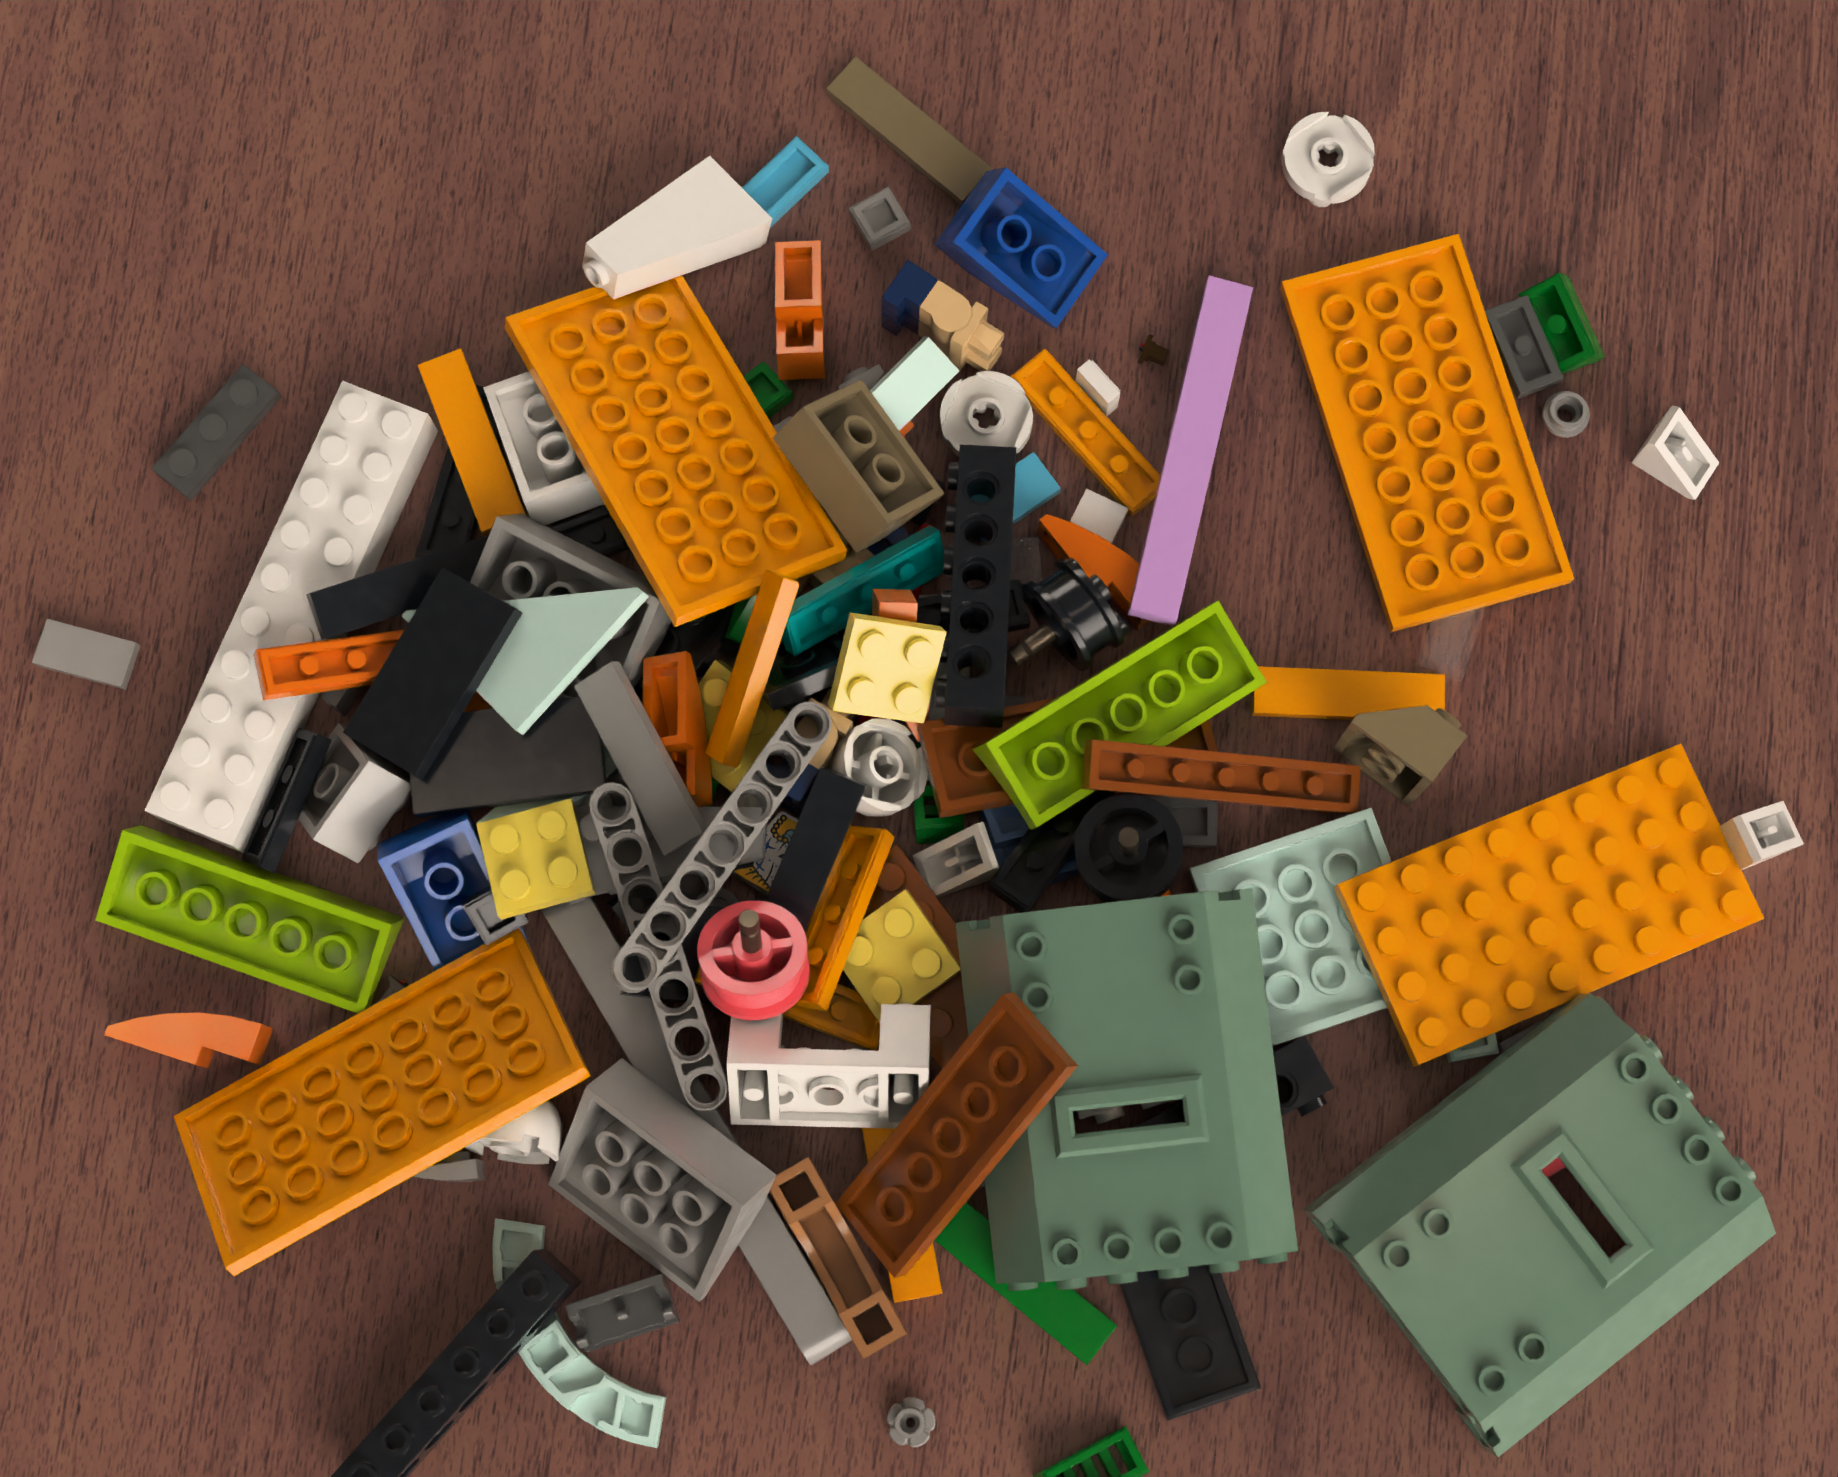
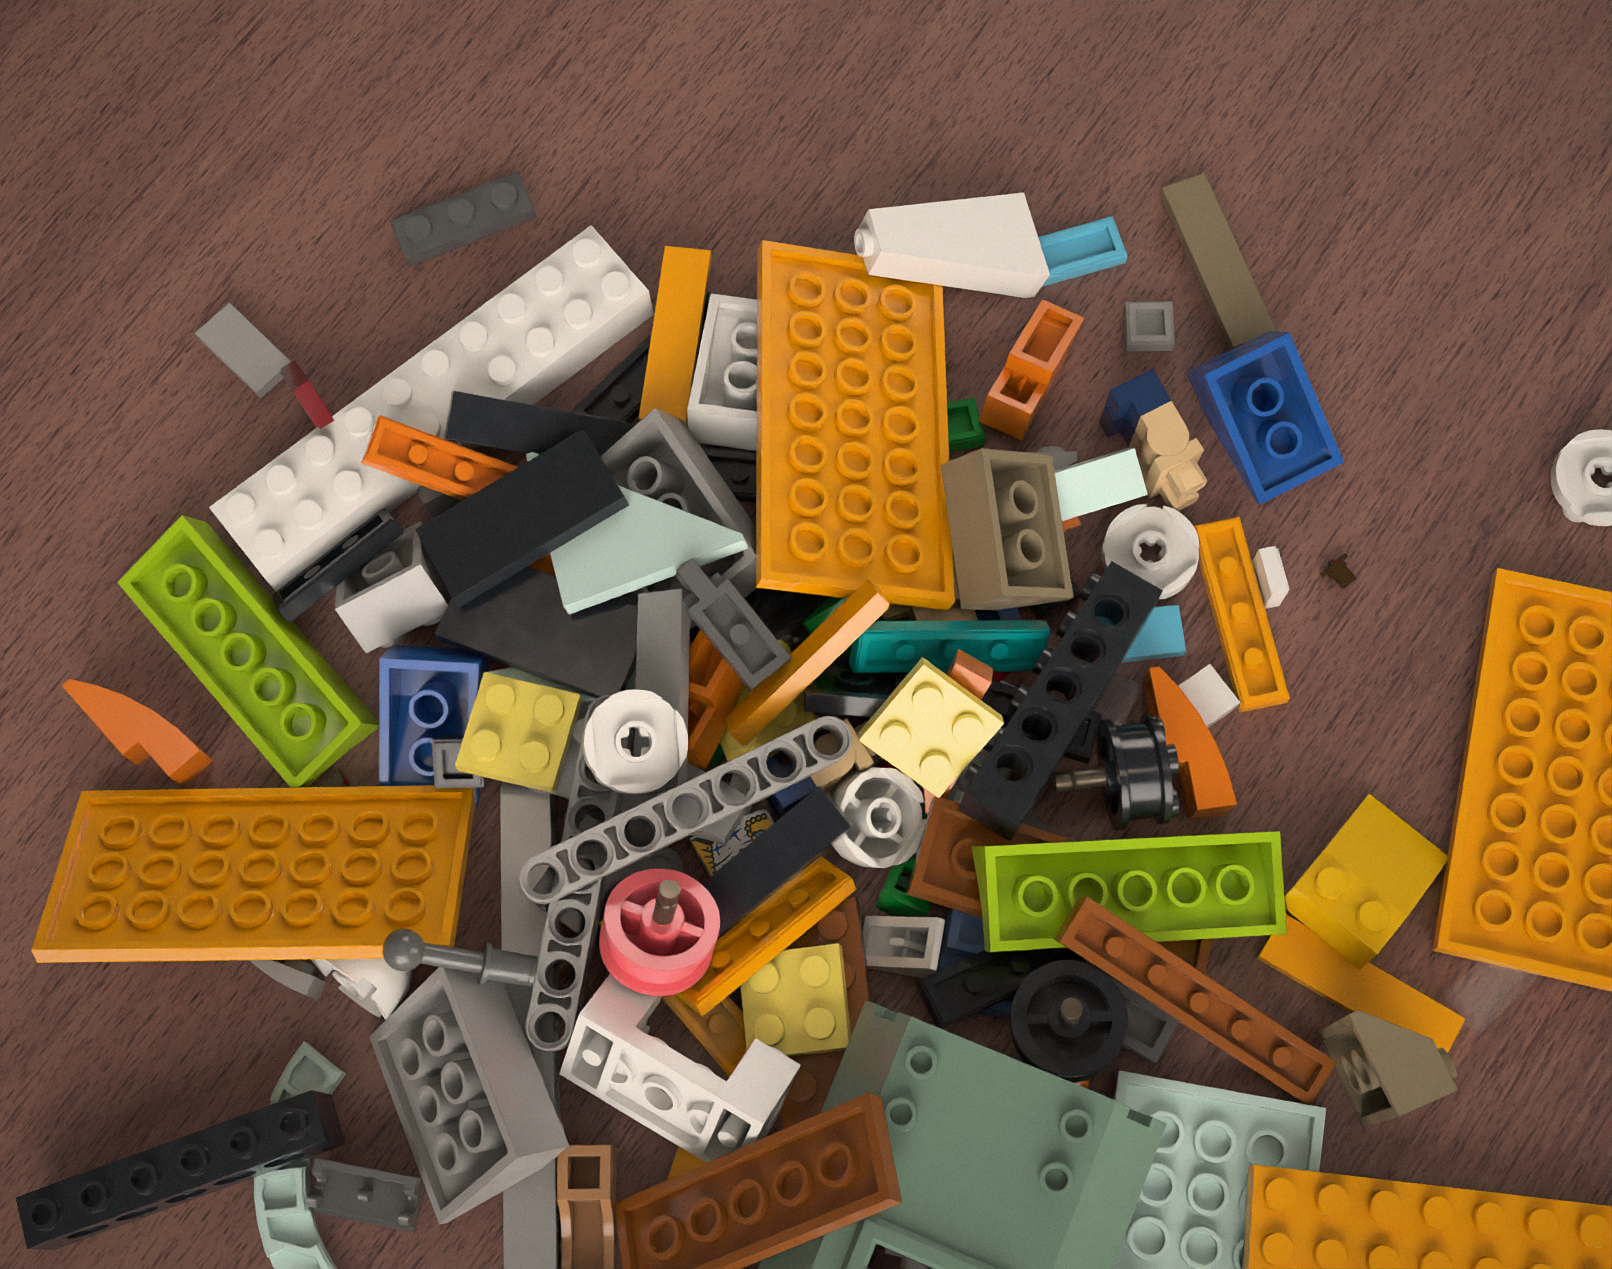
camera: 30 degrees right, 5 degrees down
(172, 665) = (306, 395): none -> dark red tile
(551, 1090) = (406, 950): none -> dark grey pin
(637, 840) = (611, 723): none -> white plate
(671, 670) = (731, 625): none -> dark grey hinge
(1190, 452) = (1325, 681): lavender tile -> none
(1308, 604) = (1365, 882): none -> yellow slope

